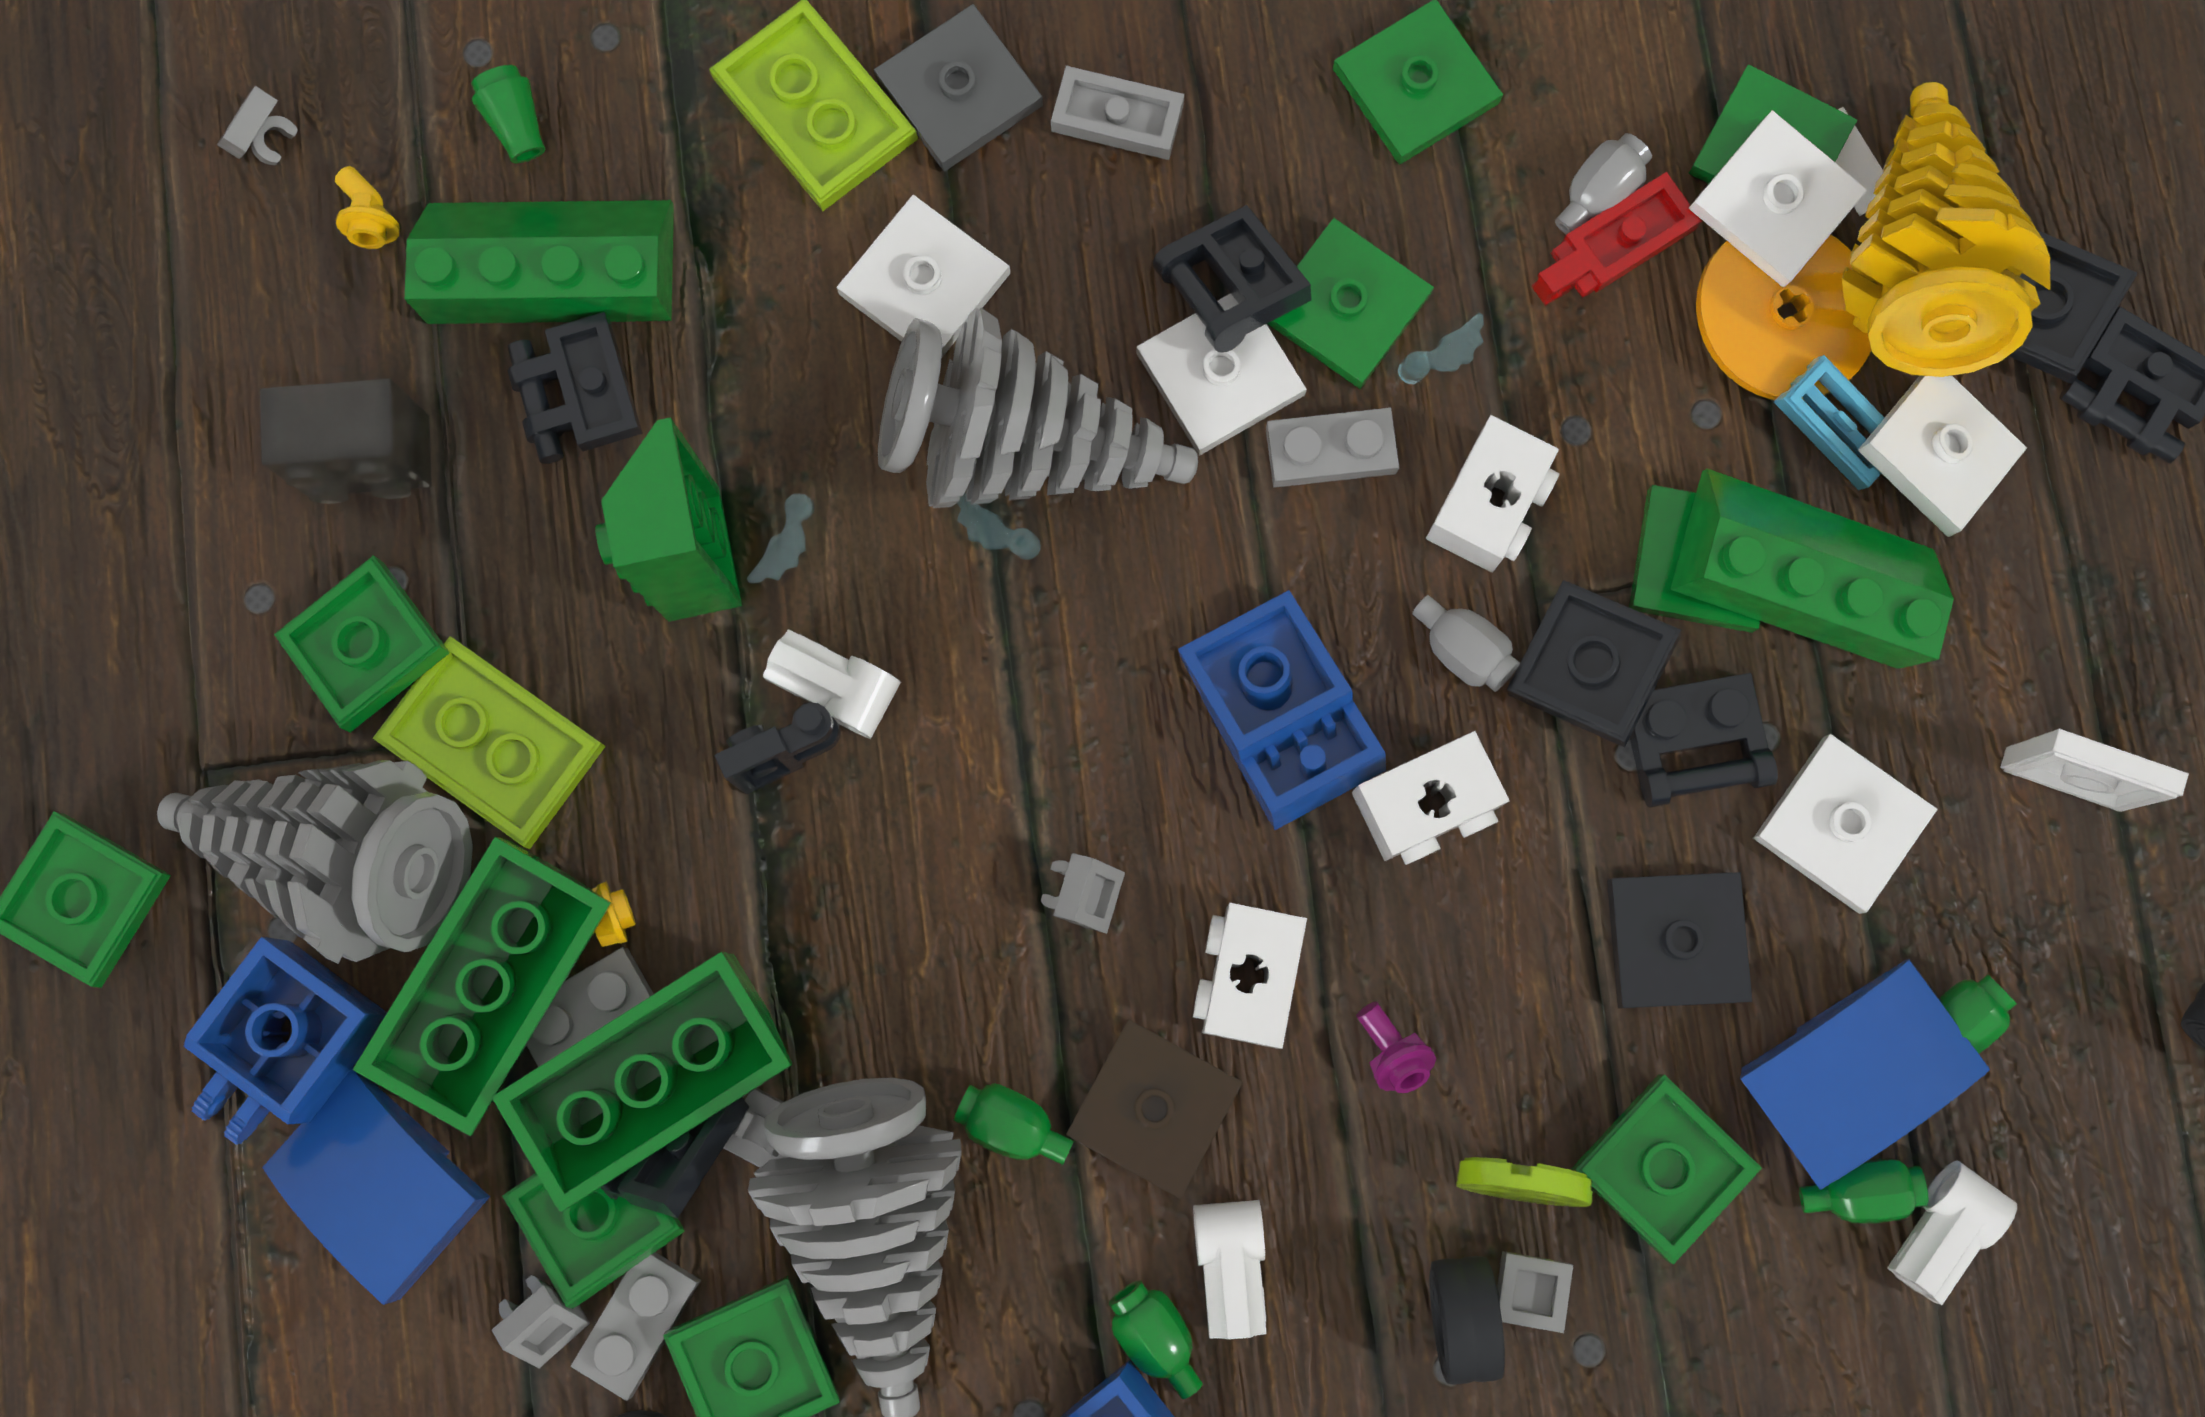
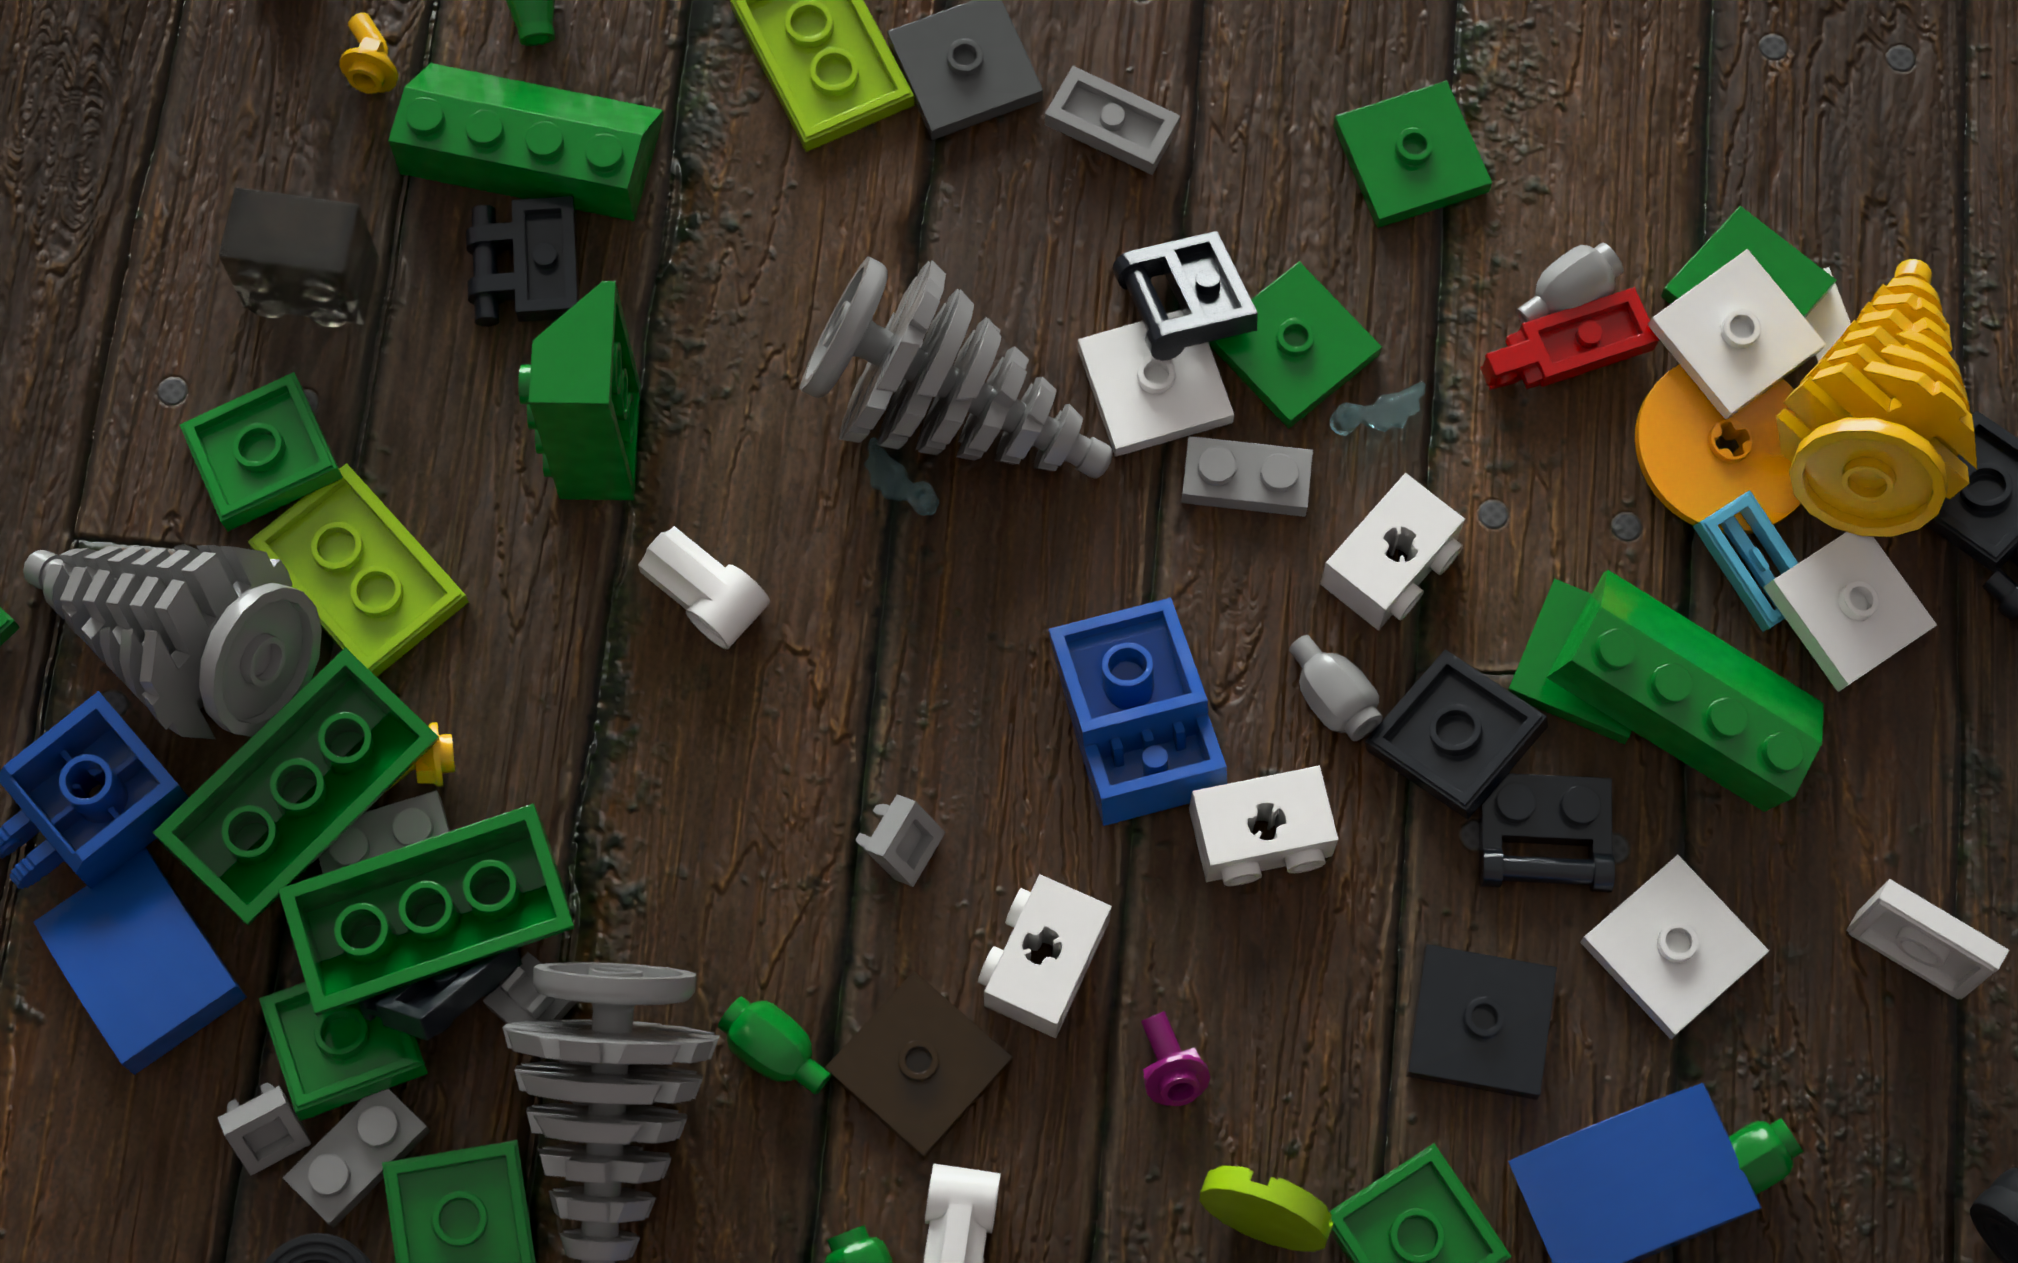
camera: 10 degrees right, 10 degrees down
(764, 756) = (626, 637): black plate -> none
(785, 548) = (694, 451): clear light blue piece -> none
(923, 272) = (890, 220): white plate -> none

